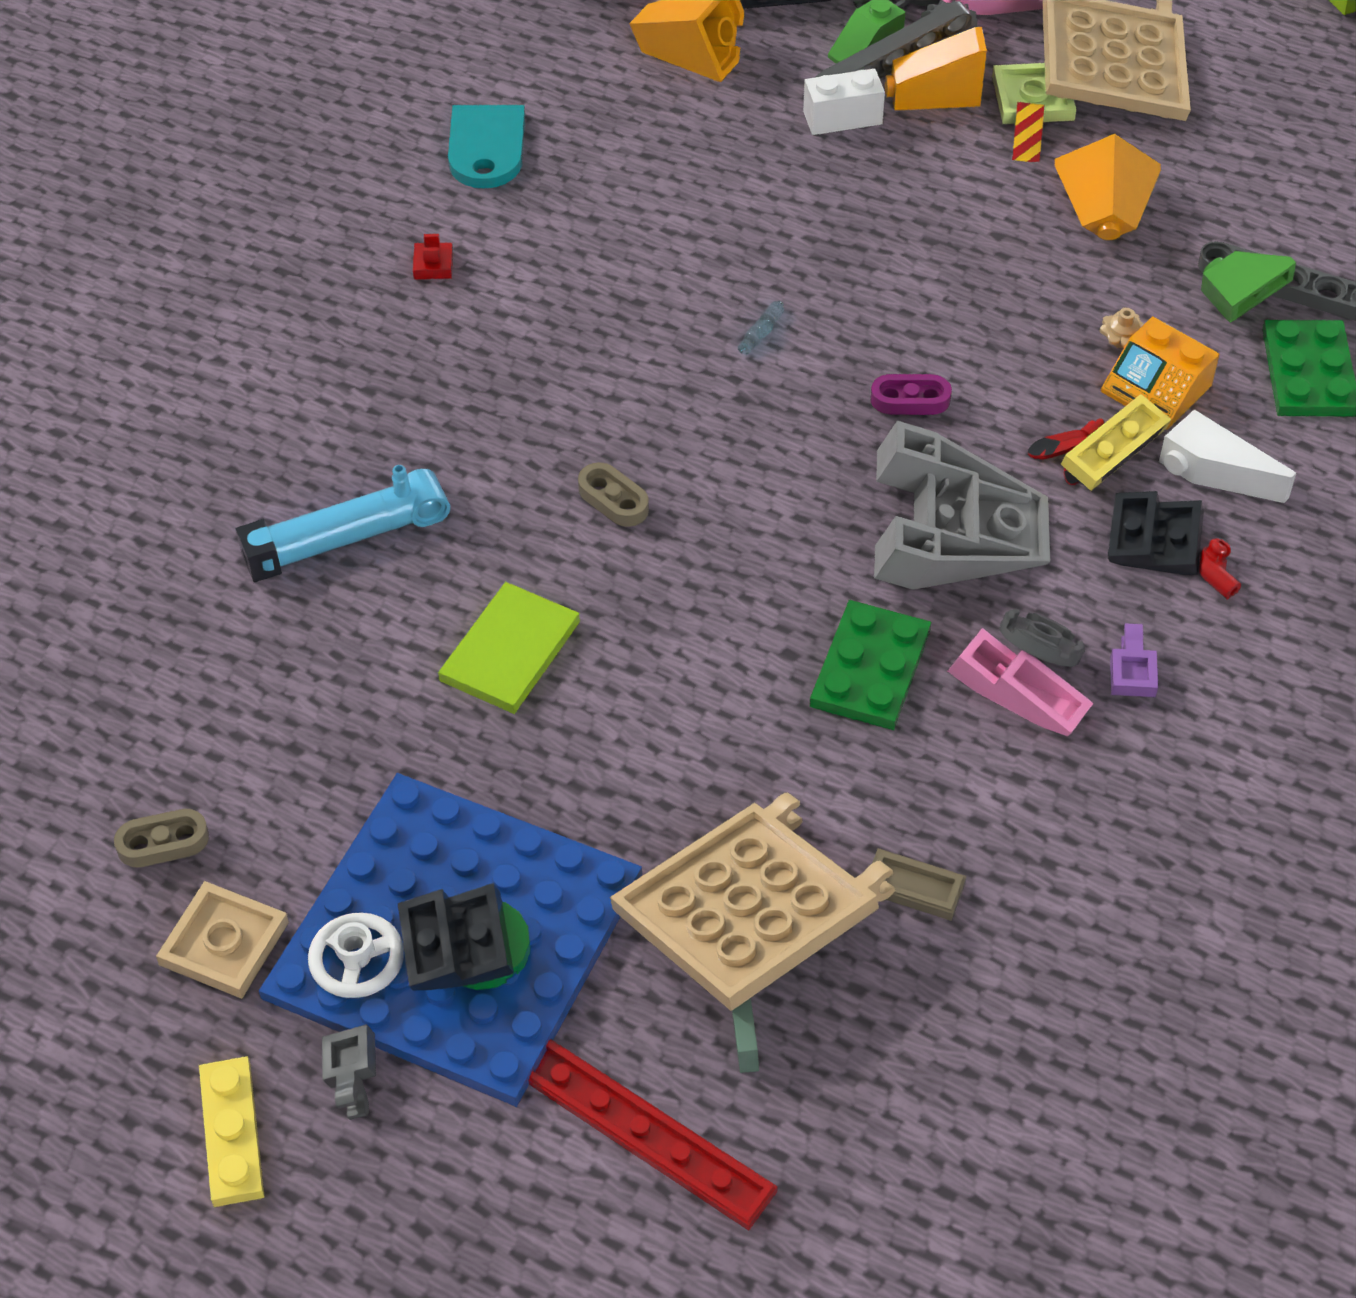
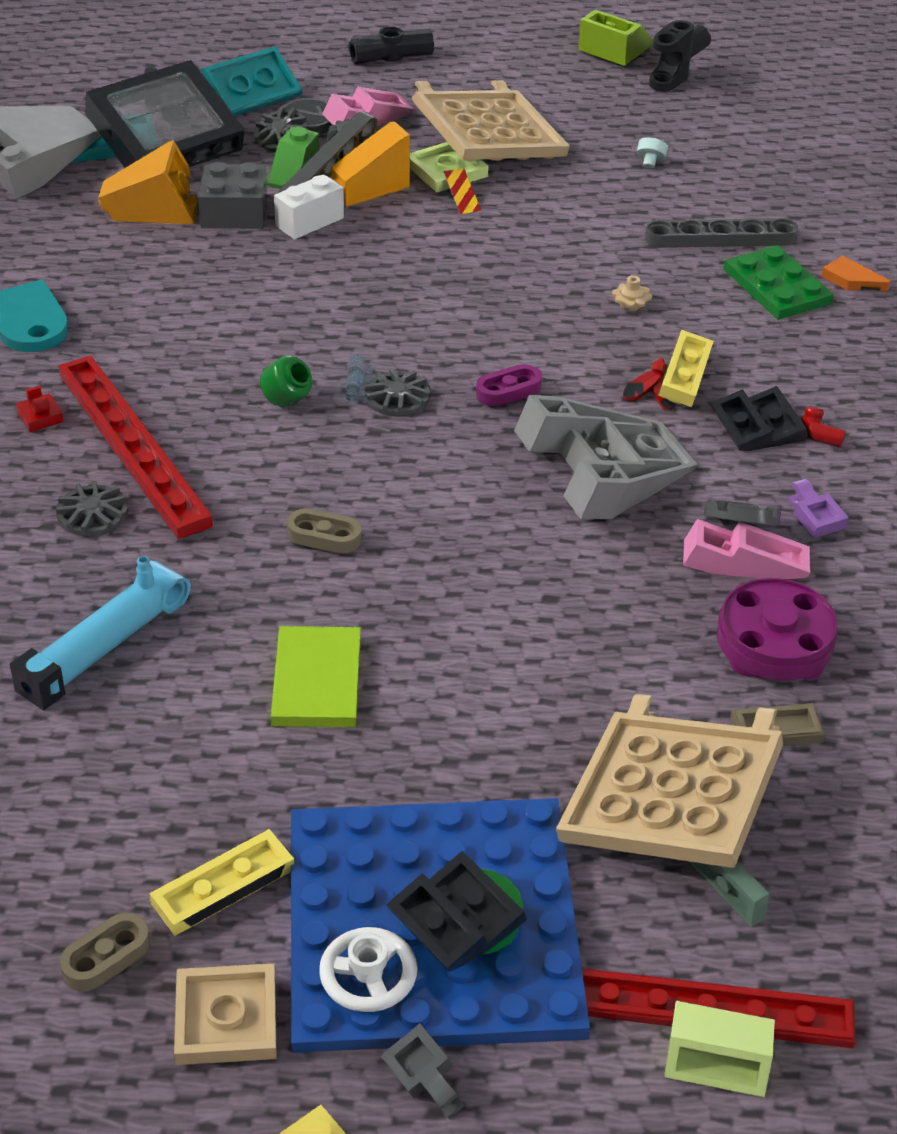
camera: 30 degrees left, 10 degrees down
(295, 816) = (221, 882): none -> light yellow plate
(417, 387) = (91, 509): none -> dark grey wheel
(494, 333) = (136, 448): none -> red plate
(617, 1170) = (720, 1048): none -> yellowish green brick
(680, 310) = (286, 381): none -> green head
(772, 63) = (233, 196): none -> dark grey brick
(792, 361) = (403, 389): none -> dark grey wheel
(870, 664) = (621, 582): green plate -> none
(983, 783) = (777, 630): none -> magenta piece
(1108, 185) = (551, 203): light orange slope -> none
(1163, 368) = (681, 305): light orange slope -> none
(1221, 460) = (770, 355): white slope -> none
(1245, 281) = (695, 237): bright green slope -> none
(1283, 147) = (651, 151): none -> light aqua tile

